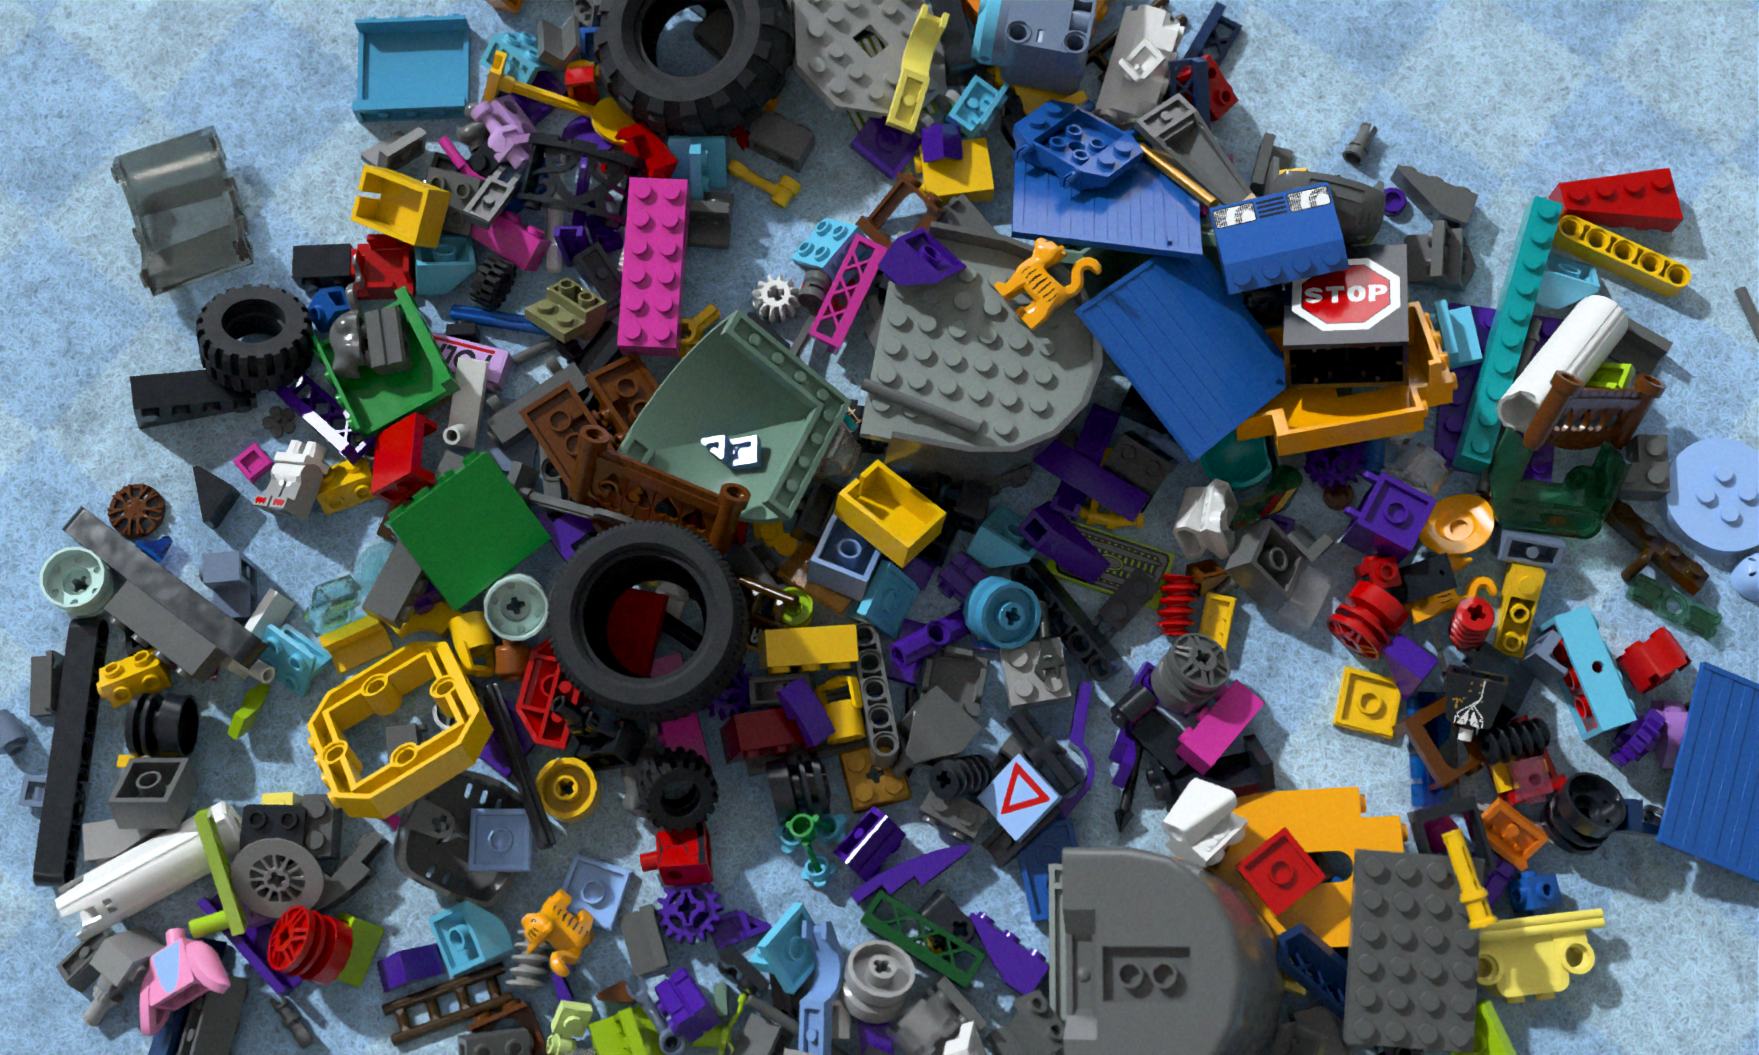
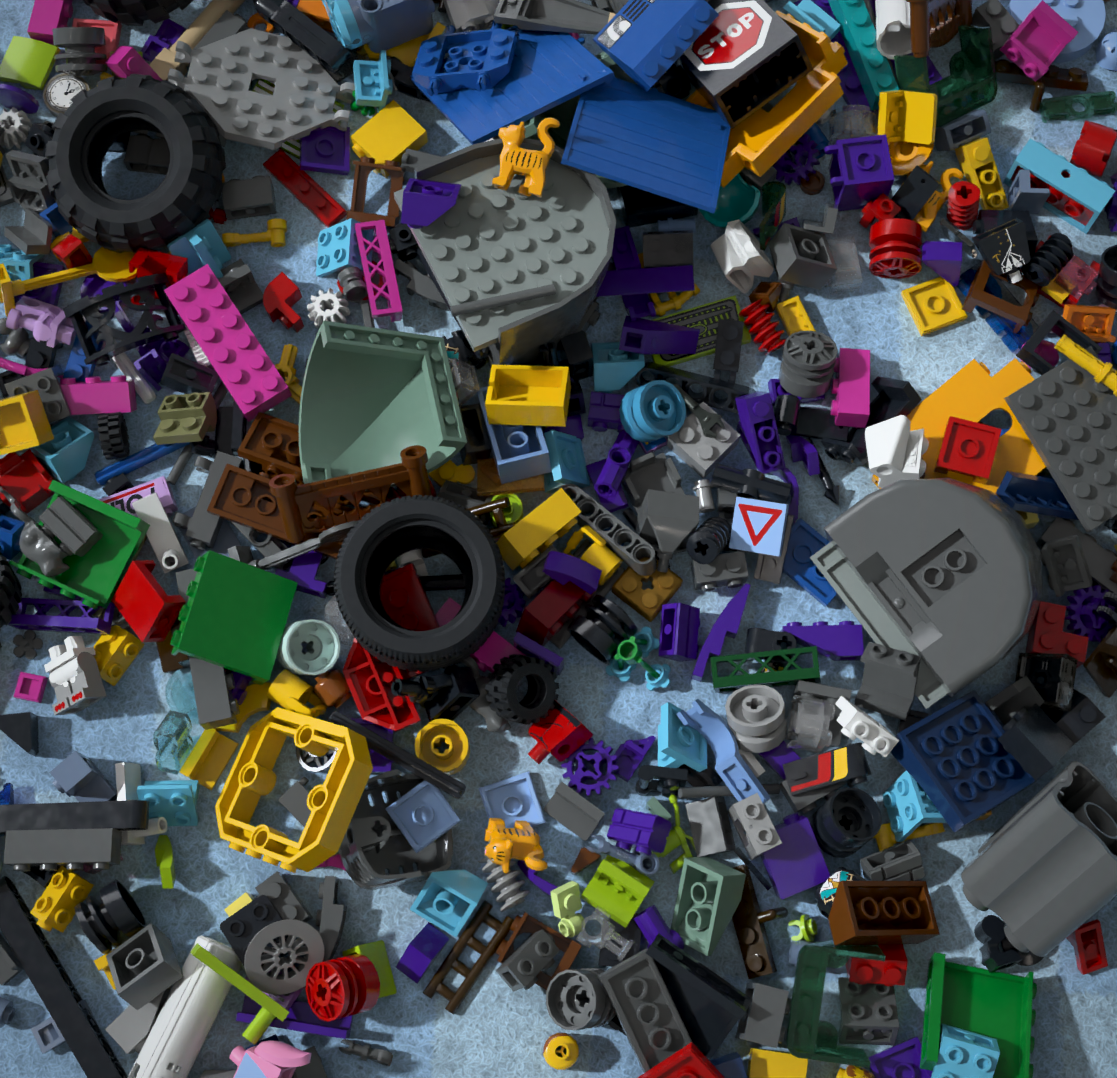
camera: 35 degrees left, 0 degrees up
(491, 199) = (70, 376): dark grey hinge -> none
(720, 767) = (533, 649): none -> dark purple tile
(736, 453) = (386, 430): slope -> none
(739, 256) = (278, 300): none -> red brick
(842, 167) = (305, 189): none -> red tile
(915, 70) = (307, 81): light yellow piece -> none
(941, 142) = (366, 122): dark purple panel -> none
(995, 729) = (704, 492): none -> light grey pin
(1093, 706) = (761, 430): none -> dark purple slope
(1179, 177) = (554, 34): pearl gold bar -> none
(1475, 496) = (907, 116): none -> yellow bracket
(1675, 511) = (1038, 40): none -> dark pink panel

